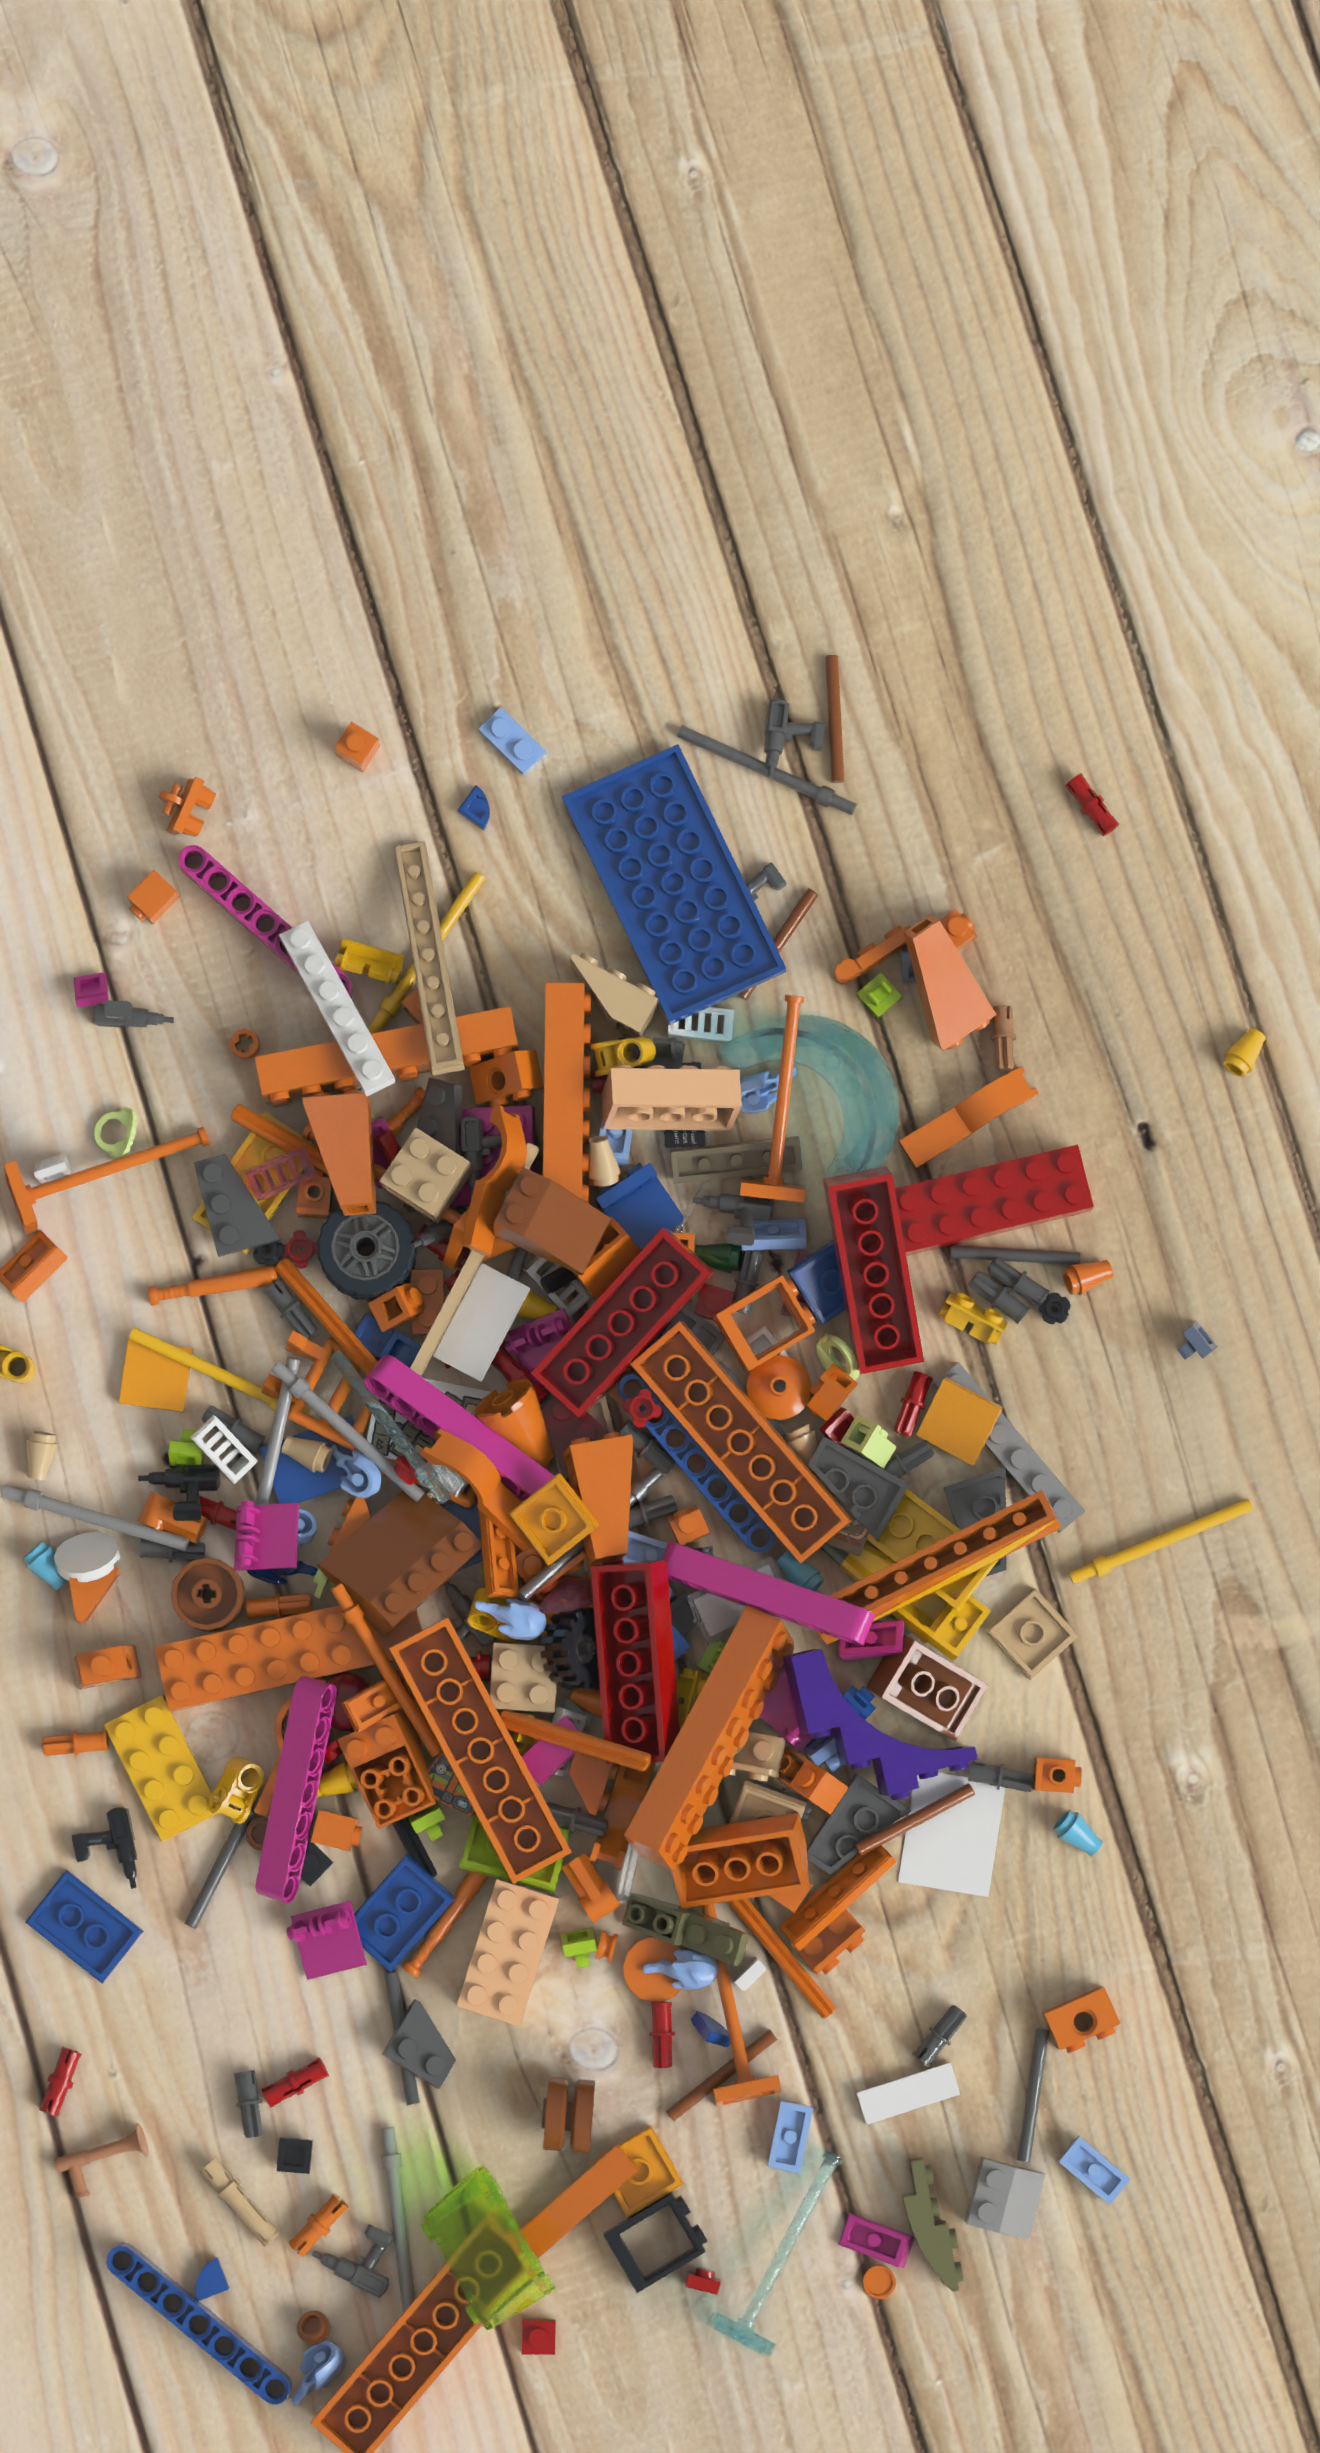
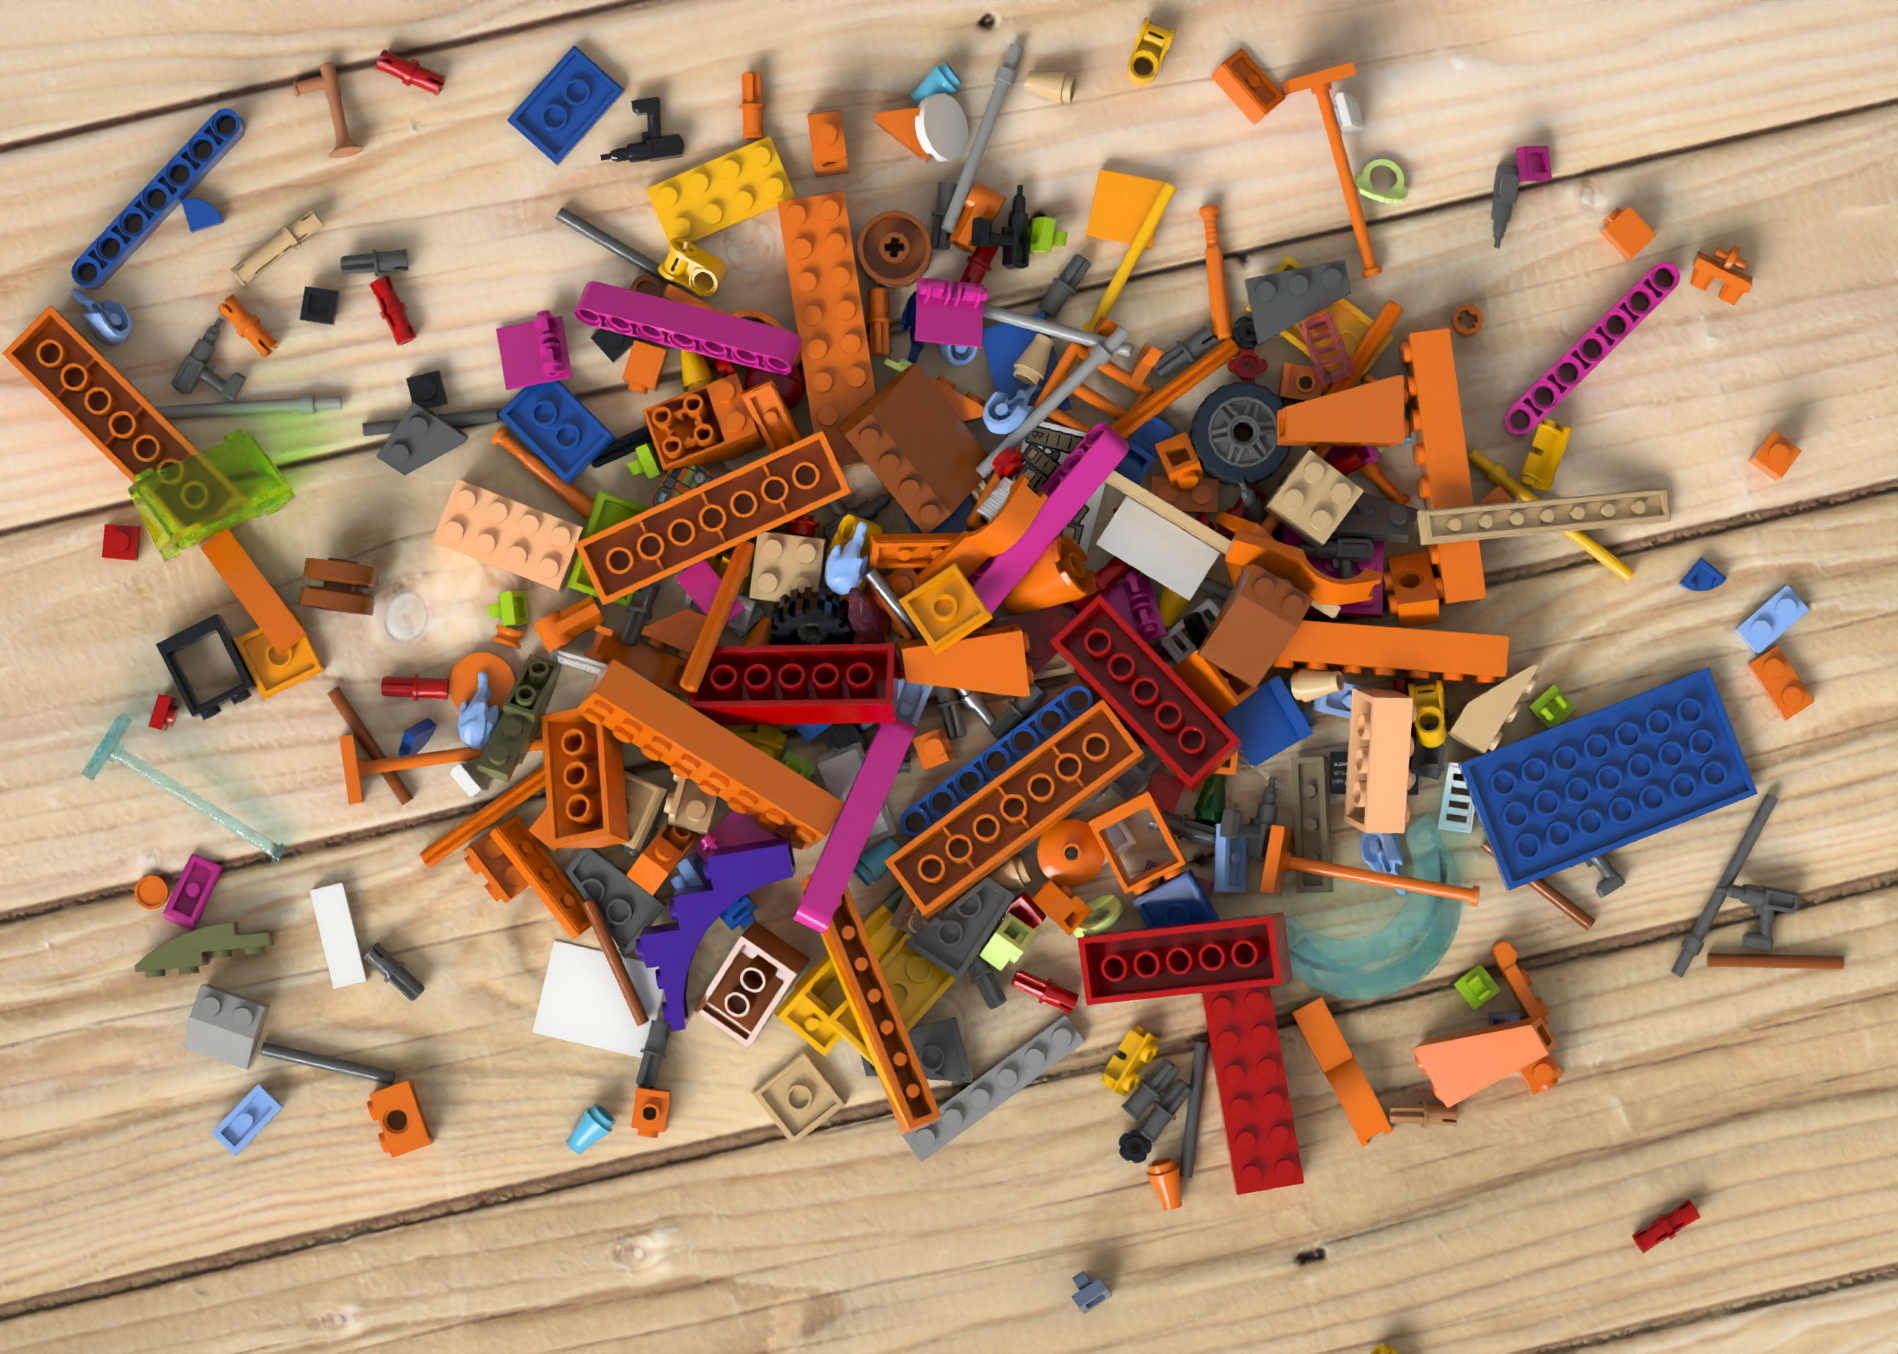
camera: 95 degrees right, 5 degrees up
(241, 1466) = (1025, 291): white slope -> none
(313, 2327) = (146, 314): dark orange plate -> none
(337, 1008) = (1495, 417): white plate -> none
(354, 1615) = (859, 397): orange bar -> none
(370, 2042) = (428, 389): none -> black plate
(424, 1472) = (1003, 478): clear light blue bar -> none
(571, 729) = (1781, 682): none -> orange plate
(609, 941) = (1552, 707): none -> lime tile
(632, 1406) = (1046, 706): red plate -> none
(790, 2136) = (303, 811): light blue plate -> none
(882, 1640) = (800, 941): dark pink slope -> none
(959, 1421) = (1023, 1037): light orange tile -> none
(1101, 1565) = (864, 1176): yellow bar -> none

